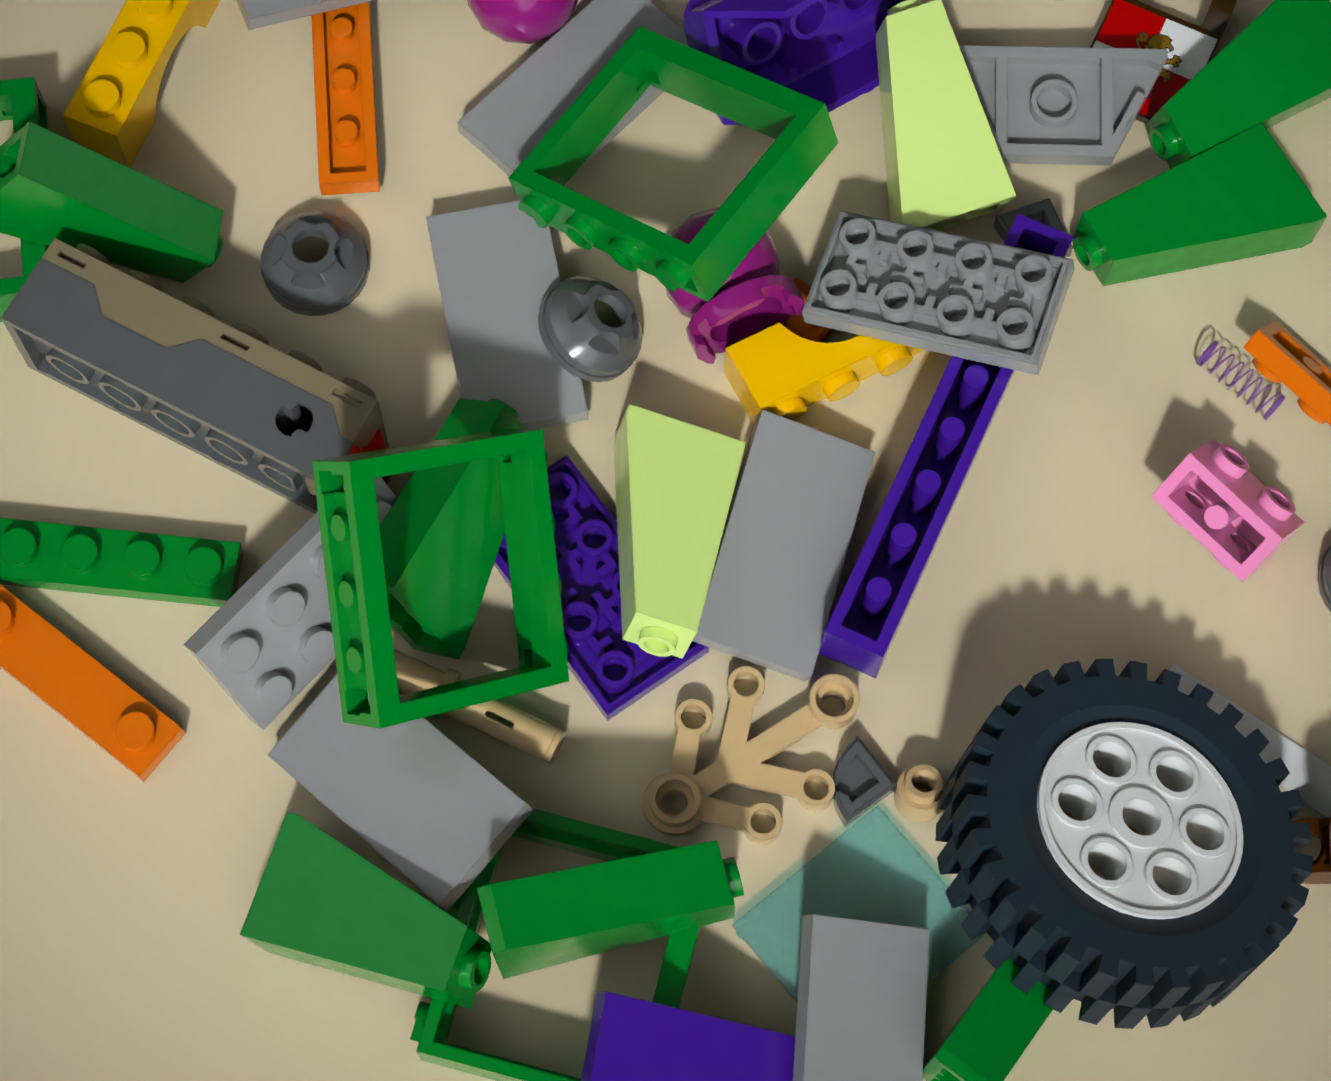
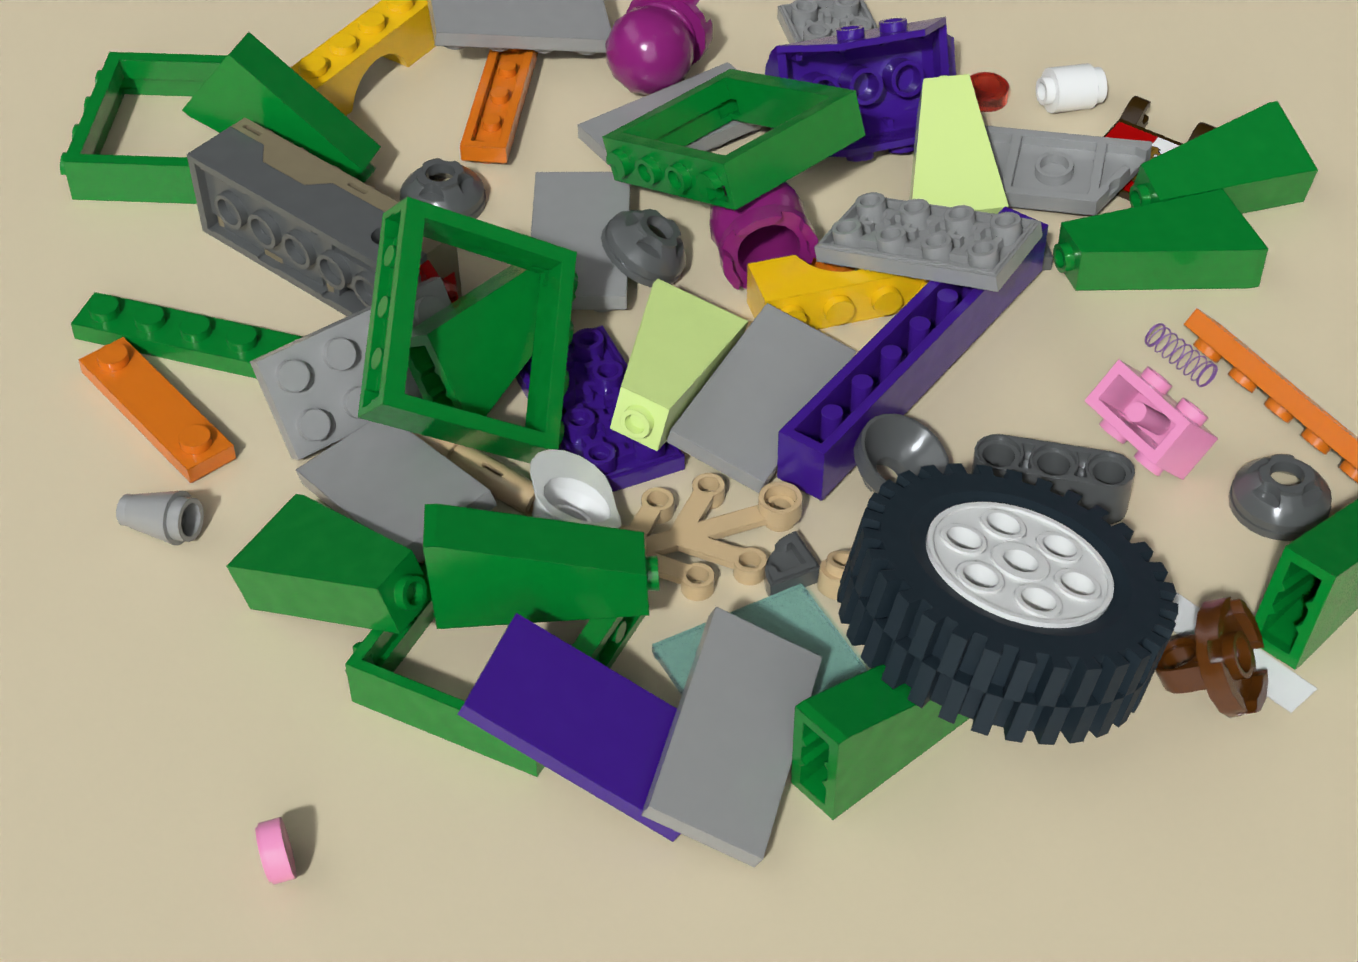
camera: 15 degrees right, 25 degrees down
(132, 851) = (163, 515): none -> light grey cone
(605, 754) = (571, 490): none -> white piece
(980, 617) = (898, 444): none -> dark grey piece
(1153, 596) = (1095, 474): none -> dark grey beam

